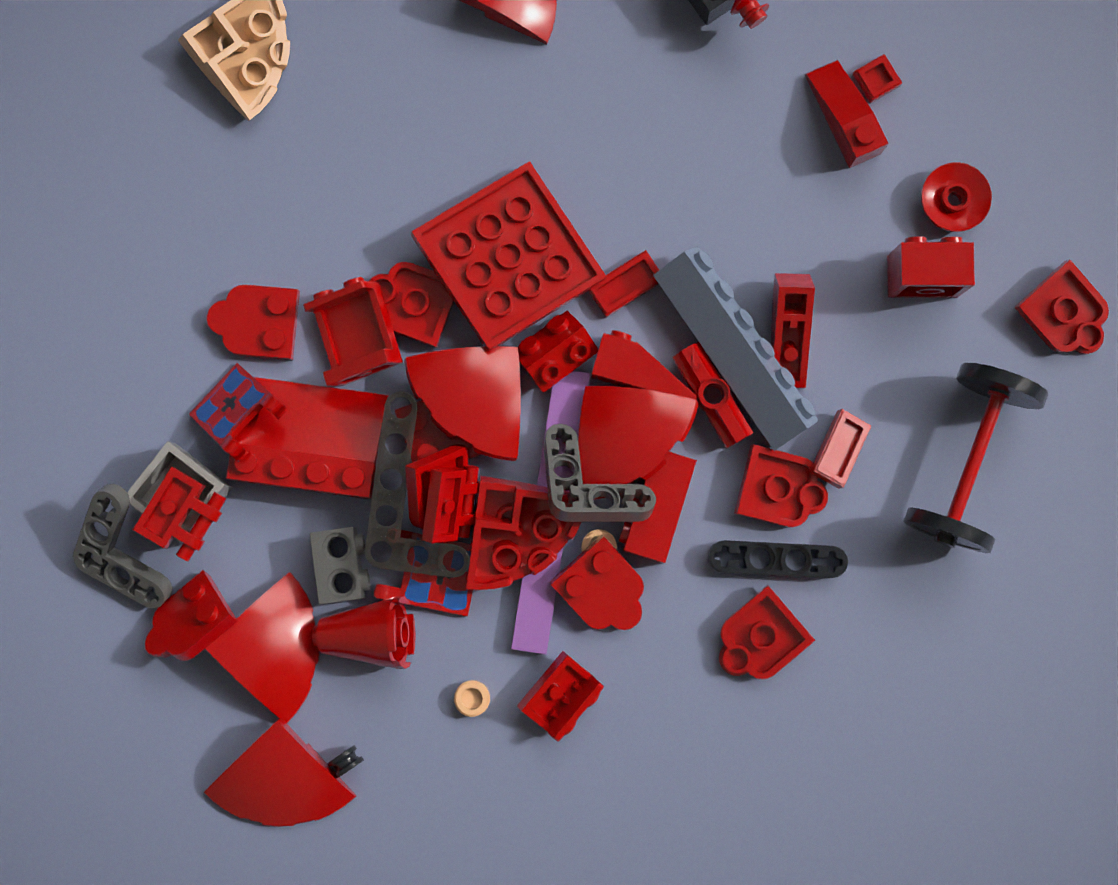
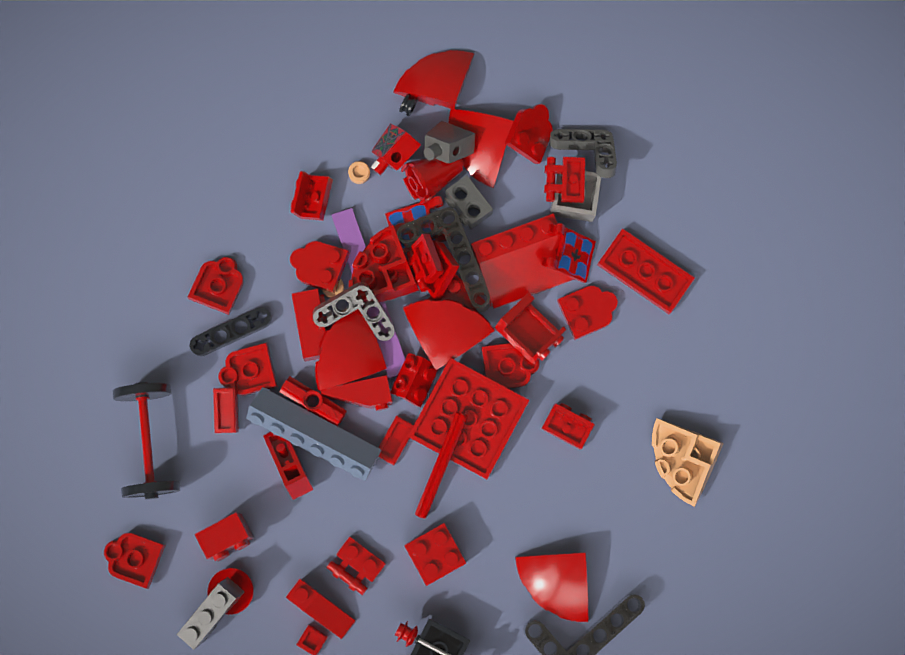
camera: 145 degrees right, 5 degrees down
(143, 331) = (645, 271): none -> red plate
(319, 665) = (448, 143): none -> dark grey torso
(378, 174) = (568, 426): none -> red bracket
(404, 701) = (393, 149): none -> red torso
(581, 212) = (441, 465): none -> red axle
(654, 98) = (435, 554): none -> red brick
(757, 148) = (361, 560): none -> red plate
(999, 175) = (210, 612): none -> arch

